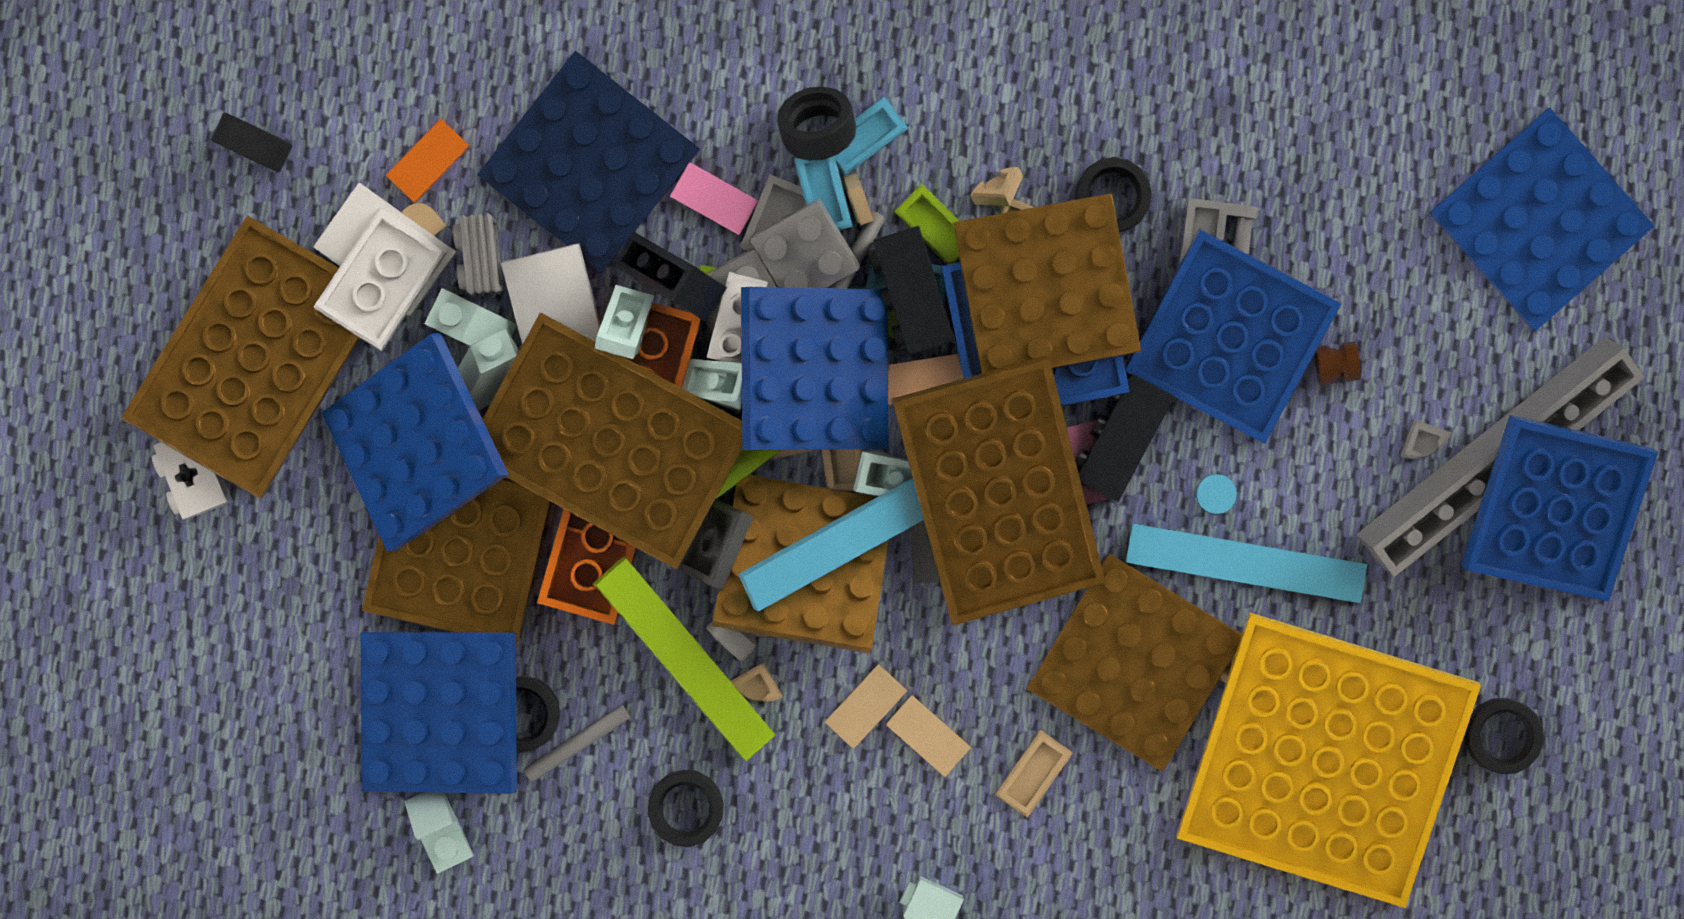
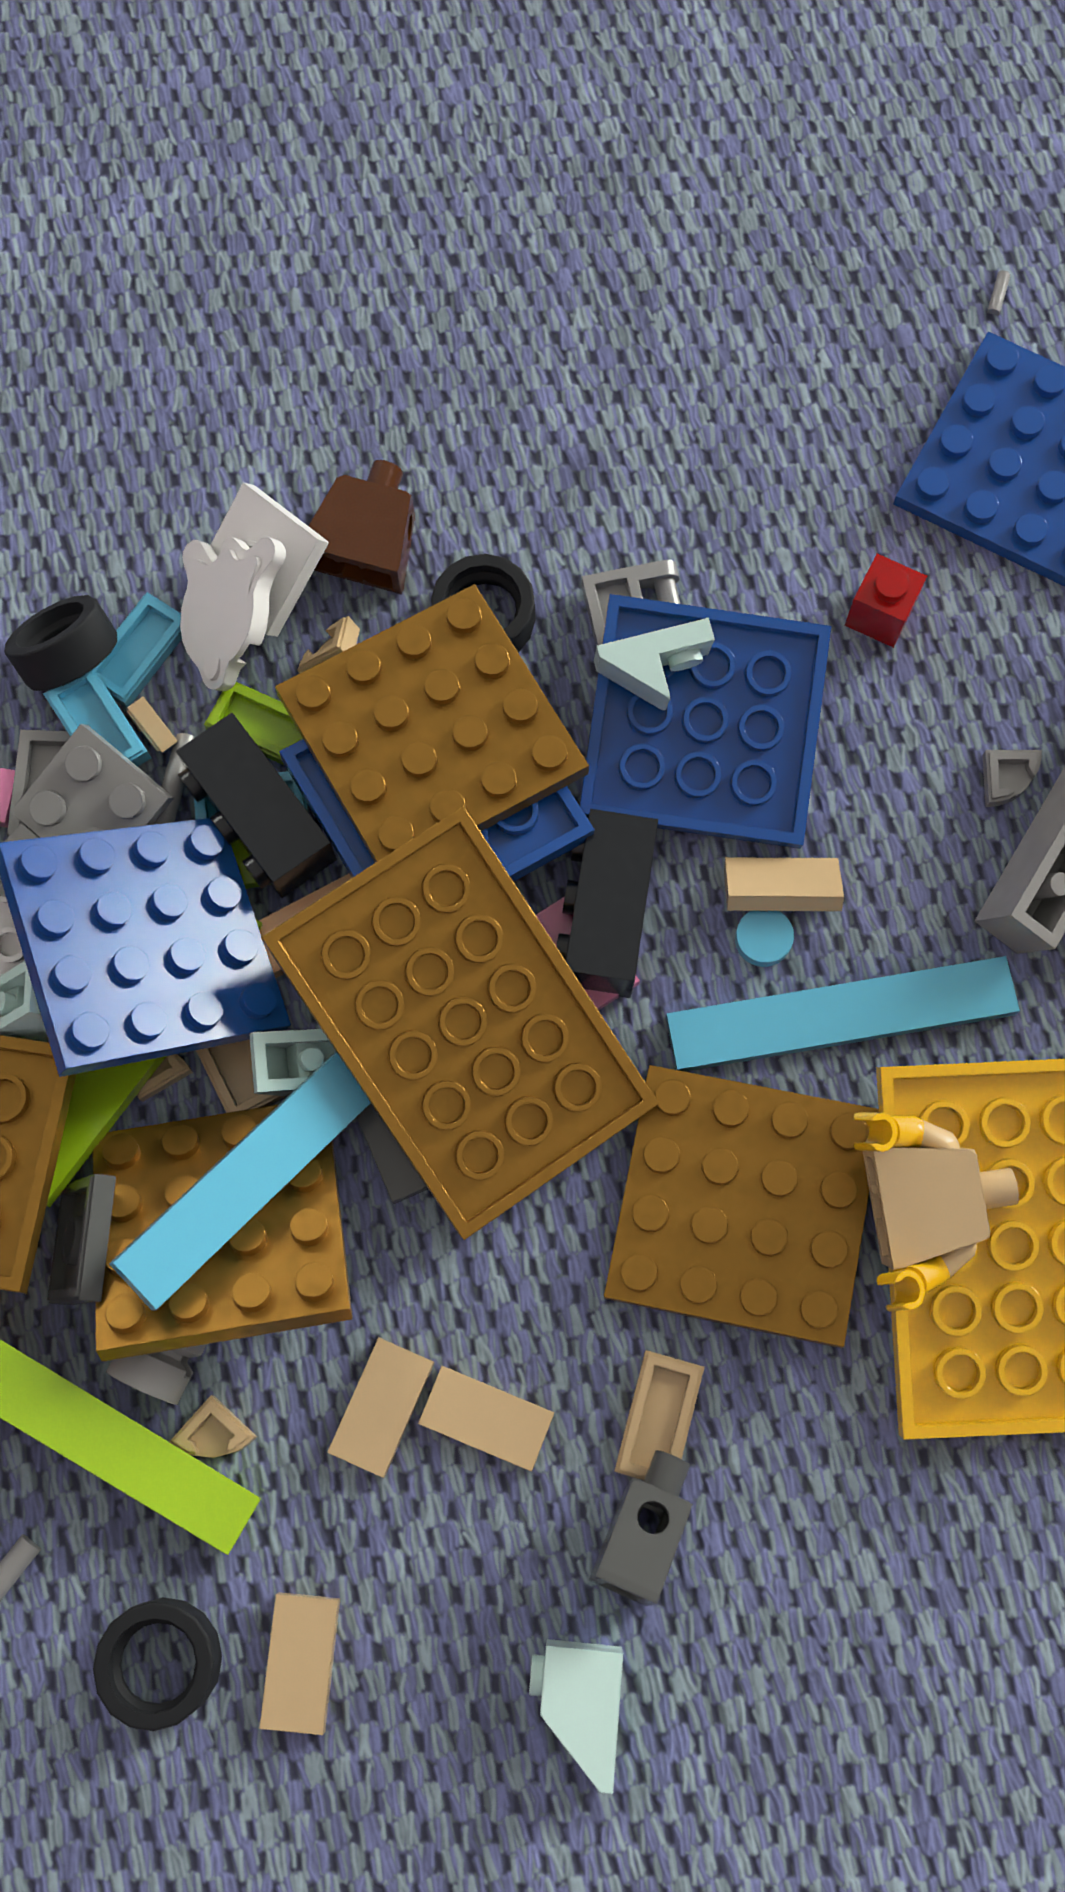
camera: 15 degrees left, 15 degrees down
(769, 837) = (300, 1663): none -> tan tile
(937, 136) = (227, 604): none -> white tile
(972, 108) = (259, 516): none -> white plate
(987, 848) = (635, 1560): none -> dark grey torso
(1052, 105) = (367, 528): none -> reddish brown torso
(1201, 289) = (639, 659): none -> light aqua slope
(1241, 464) = (783, 884): none -> tan tile
(1243, 709) = (926, 1202): none -> tan torso
(1334, 363) = (855, 713): reddish brown wheel -> none
(1389, 291) = (885, 600): none -> red brick
(1573, 74) = (999, 292): none -> light grey piece

